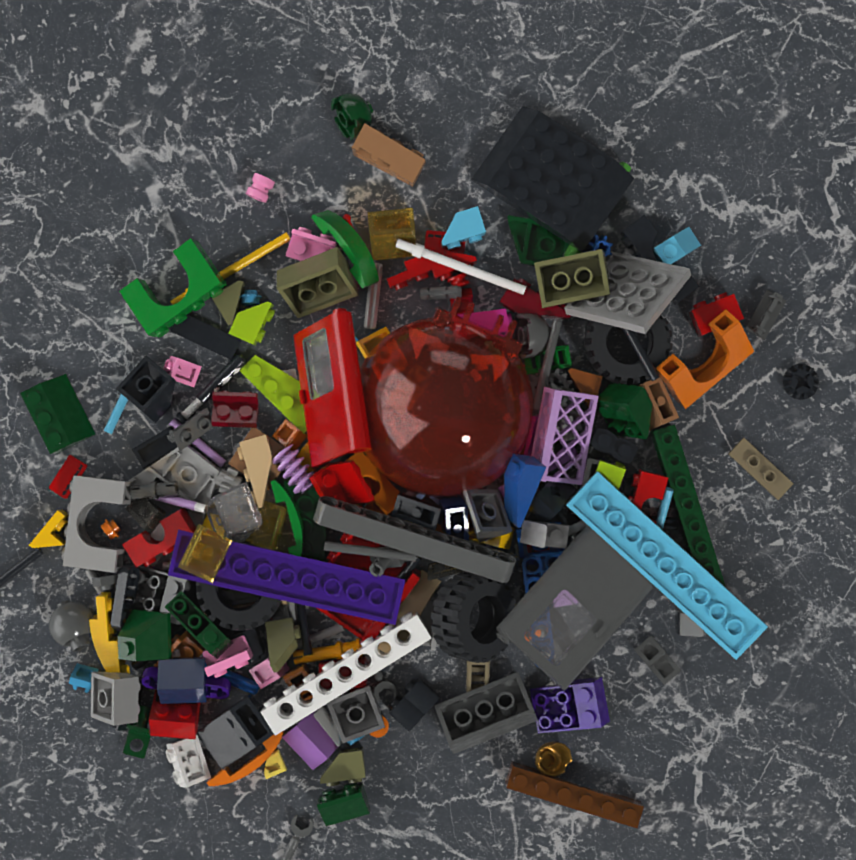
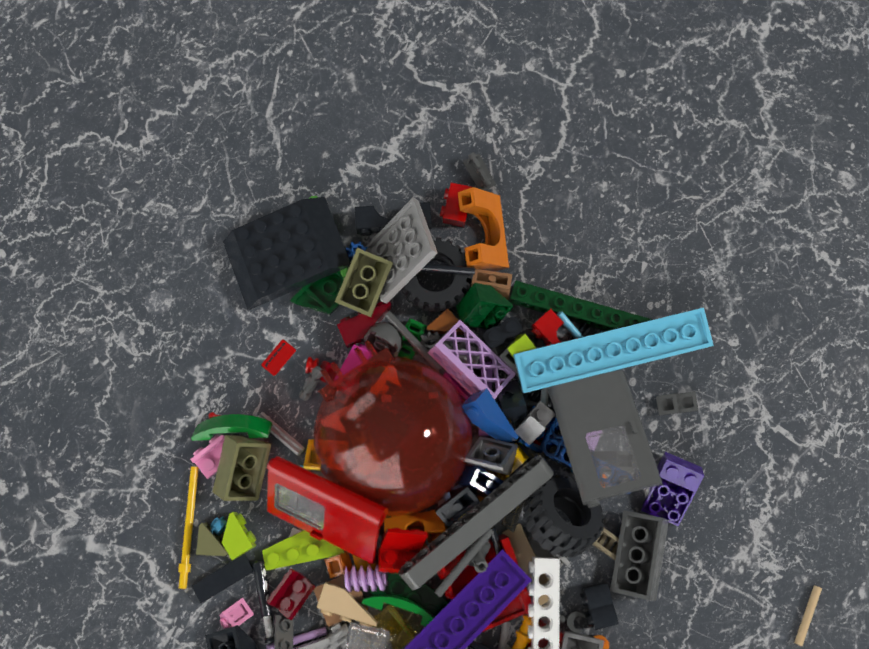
camera: 60 degrees left, 10 degrees down
(203, 283) = (183, 555): green arch -> none
(260, 187) = (145, 464): bright pink wheel -> none
(351, 114) = (141, 361): dark green cylinder -> none
(387, 228) = (245, 389): clear yellow slope -> none
(388, 155) = (187, 356): medium nougat wedge -> none
(419, 251) = (270, 378): white bar -> none
(420, 268) = (290, 371): red slope -> none
(464, 227) = (277, 335): medium azure slope -> none
(553, 758) = (704, 527): pearl gold hair -> none
(588, 800) = (760, 514): reddish brown arch -> none
(676, 247) = (392, 200): medium azure slope -> none
(688, 627) = (666, 365): dark grey slope -> none
(760, 468) = (584, 244): dark tan plate -> none
(791, 382) = (536, 185): black gear -> none

